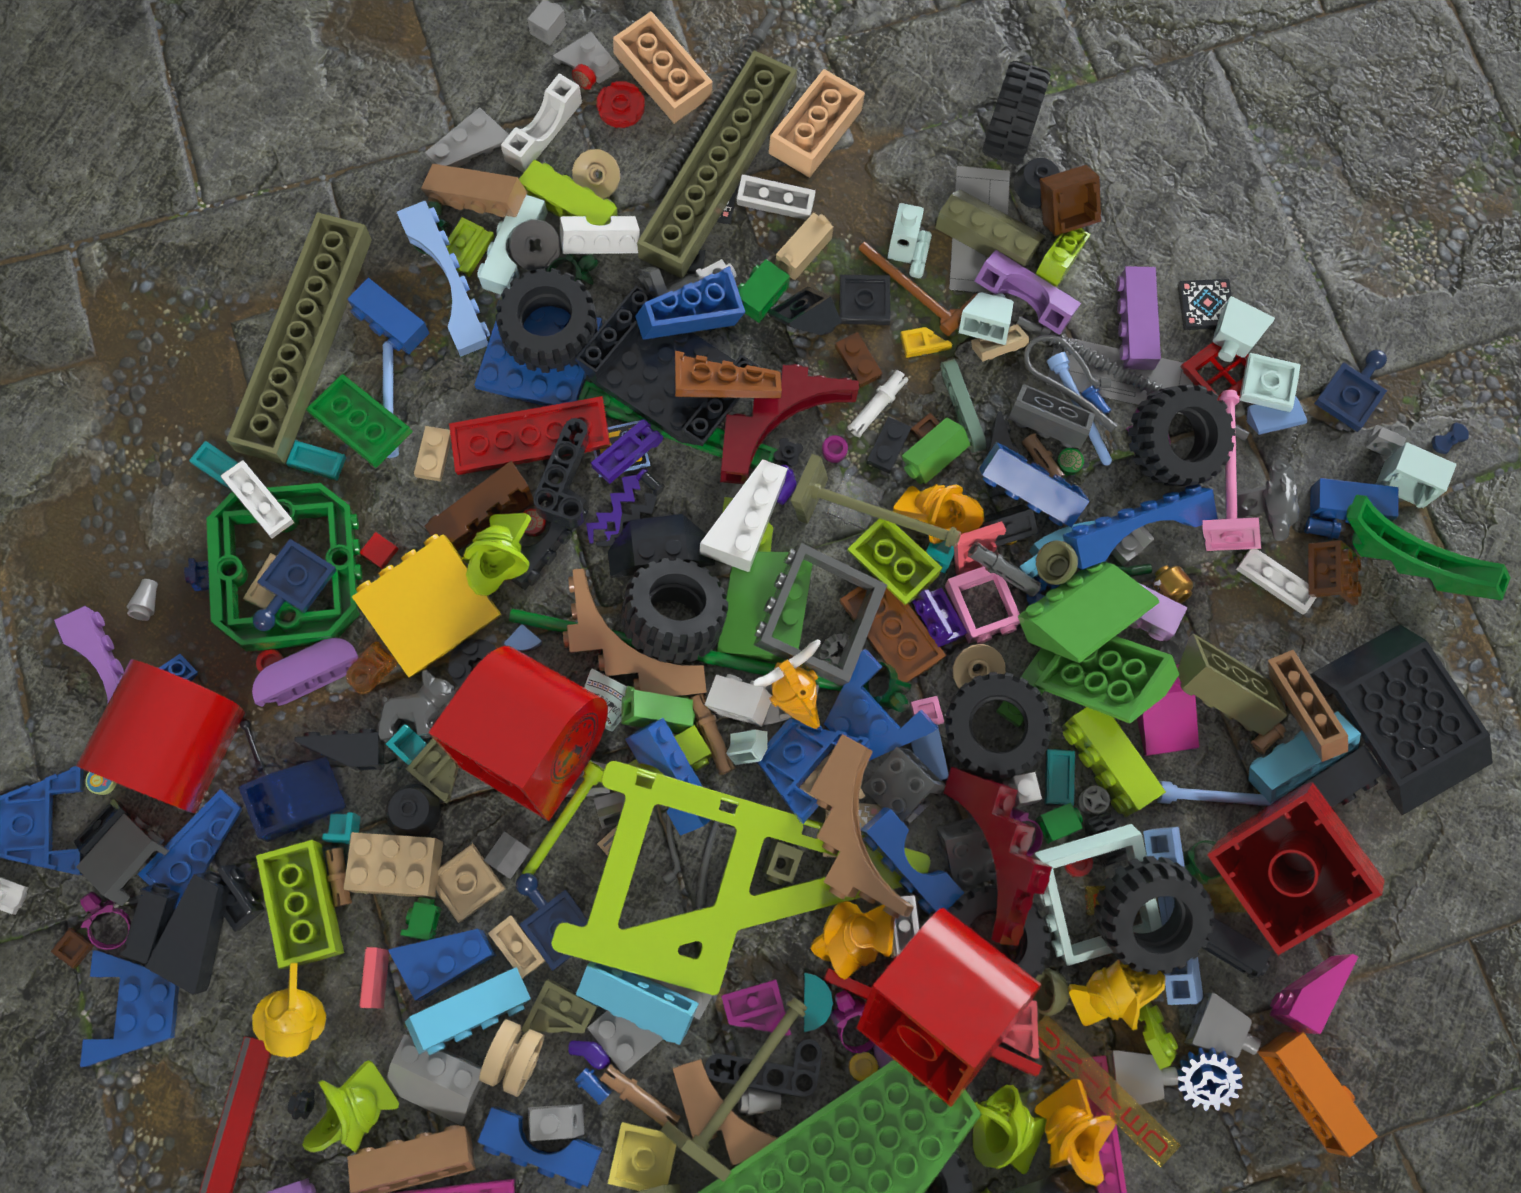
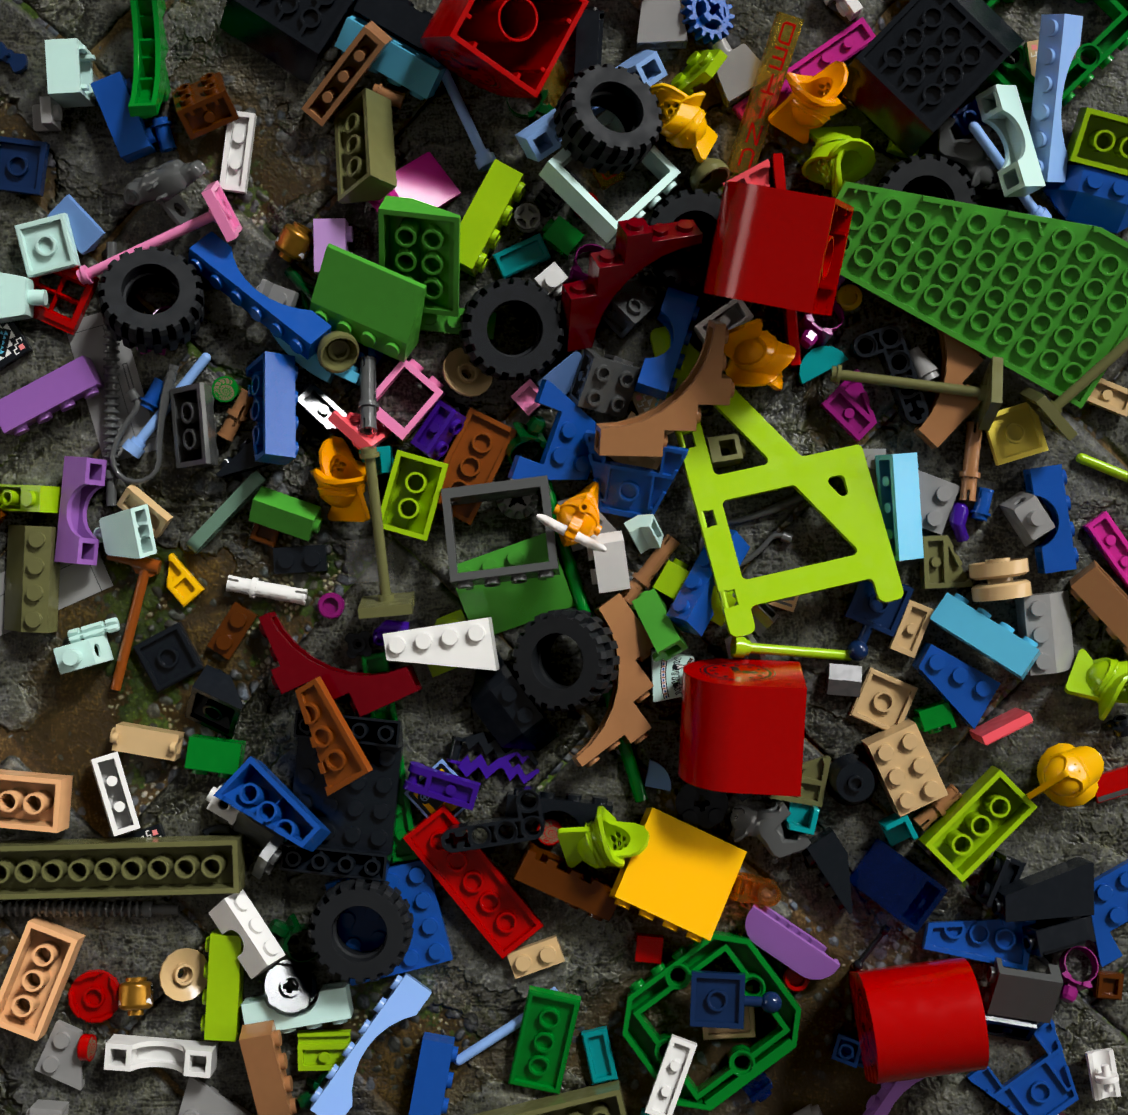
camera: 110 degrees left, 15 degrees up
(602, 131) = (135, 995): none -> pearl gold head

